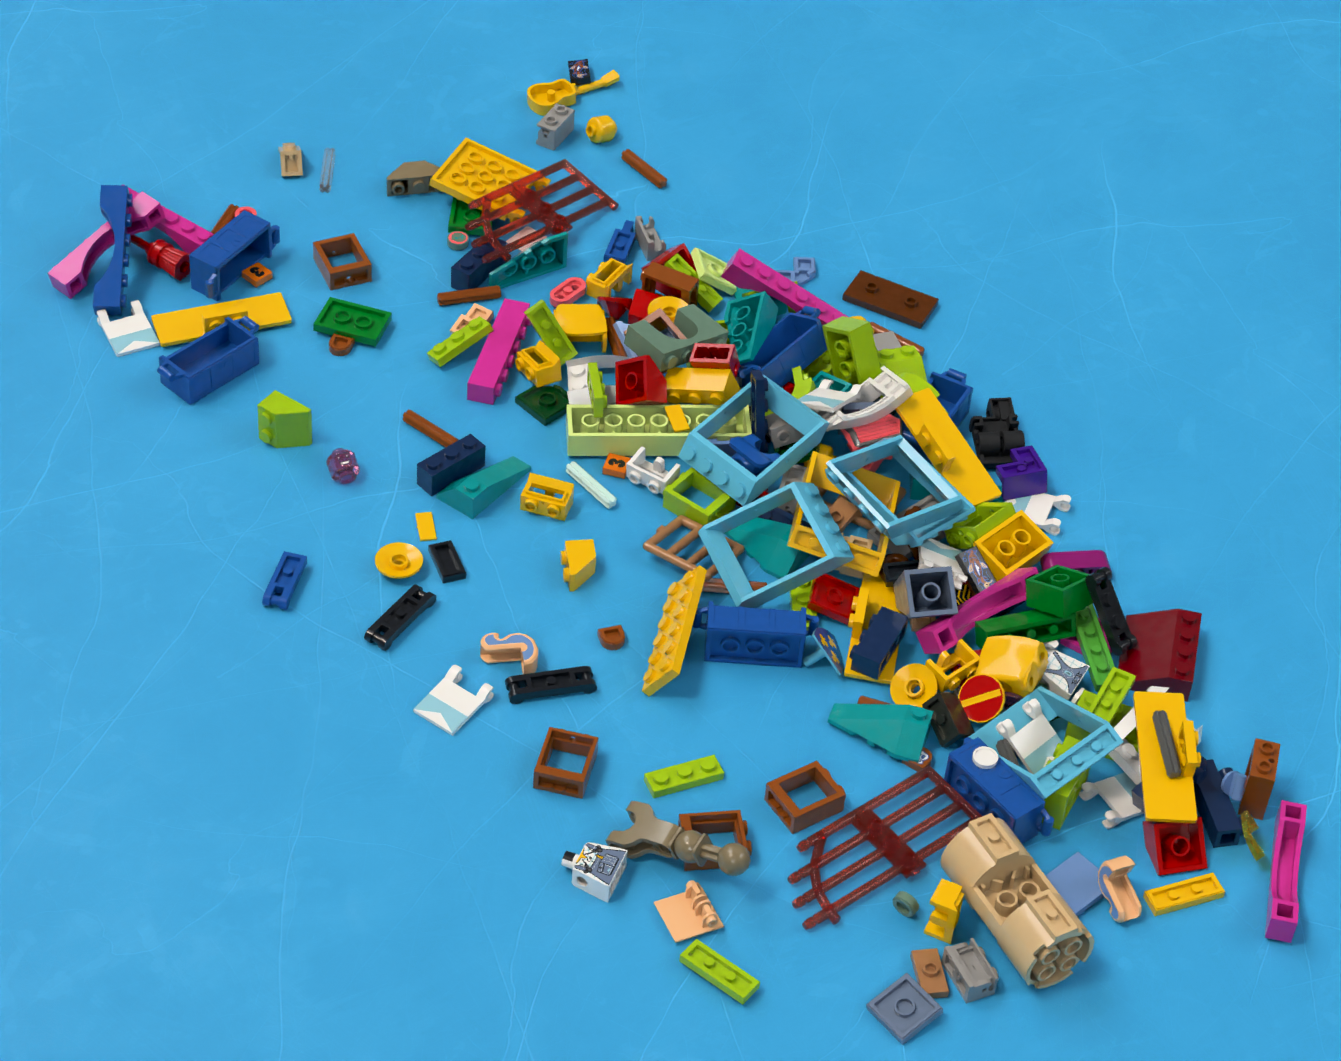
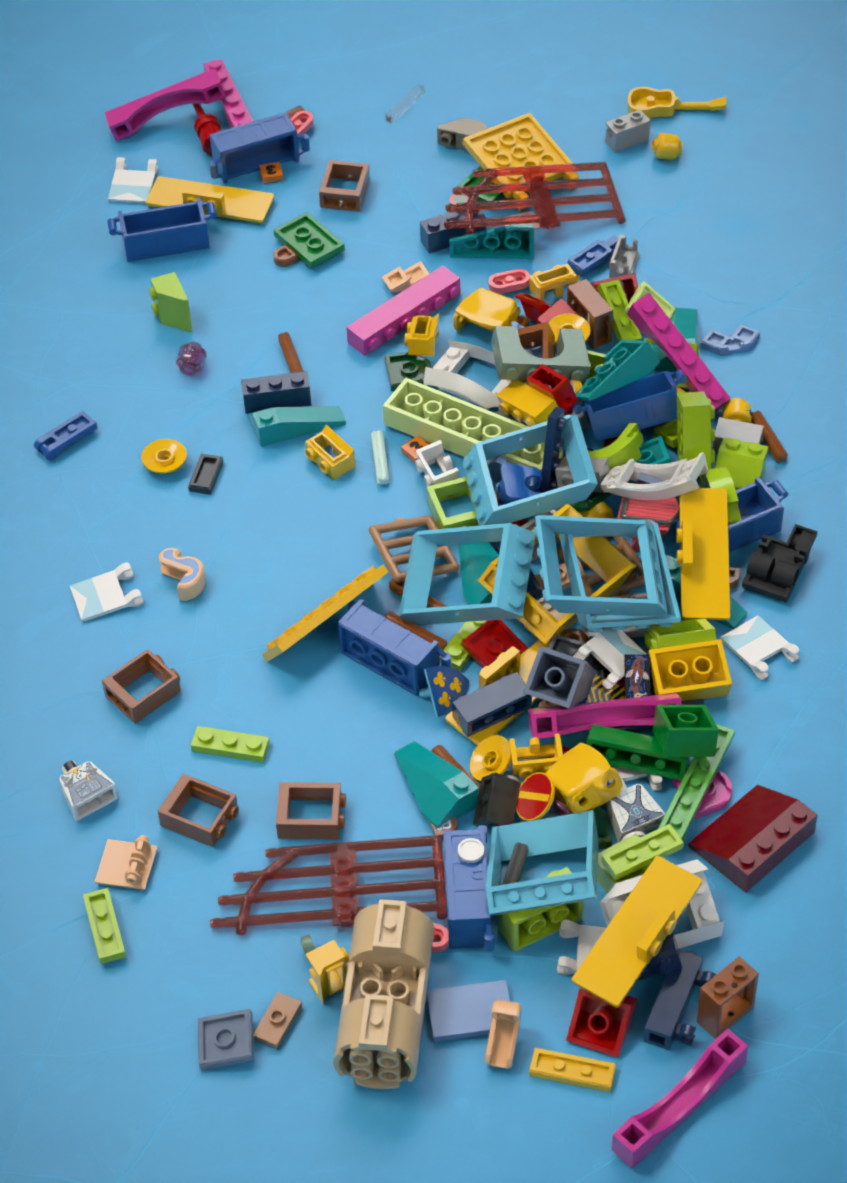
camera: 40 degrees right, 5 degrees up
(109, 289) = (140, 142): blue arch -> none
(290, 160) = (378, 83): tan bracket -> none
(399, 616) = (126, 503): black plate -> none
(425, 526) = (217, 437): yellow window -> none
(459, 341) = (375, 289): lime plate -> none
(469, 295) = (425, 253): dark orange axle -> none
(550, 331) = (446, 309): lime plate -> none
(550, 683) = (192, 614): black plate -> none
(579, 72) = (694, 89): tile -> none
(579, 560) = (305, 521): yellow slope -> none
(596, 390) = (435, 373): lime plate -> none
(611, 637) = (280, 597): dark orange tile -> none
(639, 382) = (477, 383): red slope -> none
(644, 168) = (677, 195): dark orange axle -> none
(670, 841) = (156, 804): dark tan piece -> none
(676, 418) = (487, 426): yellow window -> none
(831, 400) = (631, 462): white flag -> none
(890, 299) = (799, 397): reddish brown plate -> none
(970, 970) = (309, 1036): light grey hinge -> none
(1024, 476) = (768, 611): dark purple panel -> none
(1033, 742) = (551, 855): white flag -> none
(1082, 561) = (746, 716): magenta beam -> none
(1110, 611) = (718, 771): black plate -> none
(1166, 744) = (642, 919): dark grey axle -> none
(1234, 784) = (691, 990): medium blue plate -> none
(1248, 827) = (671, 1050): clear yellow slope -> none

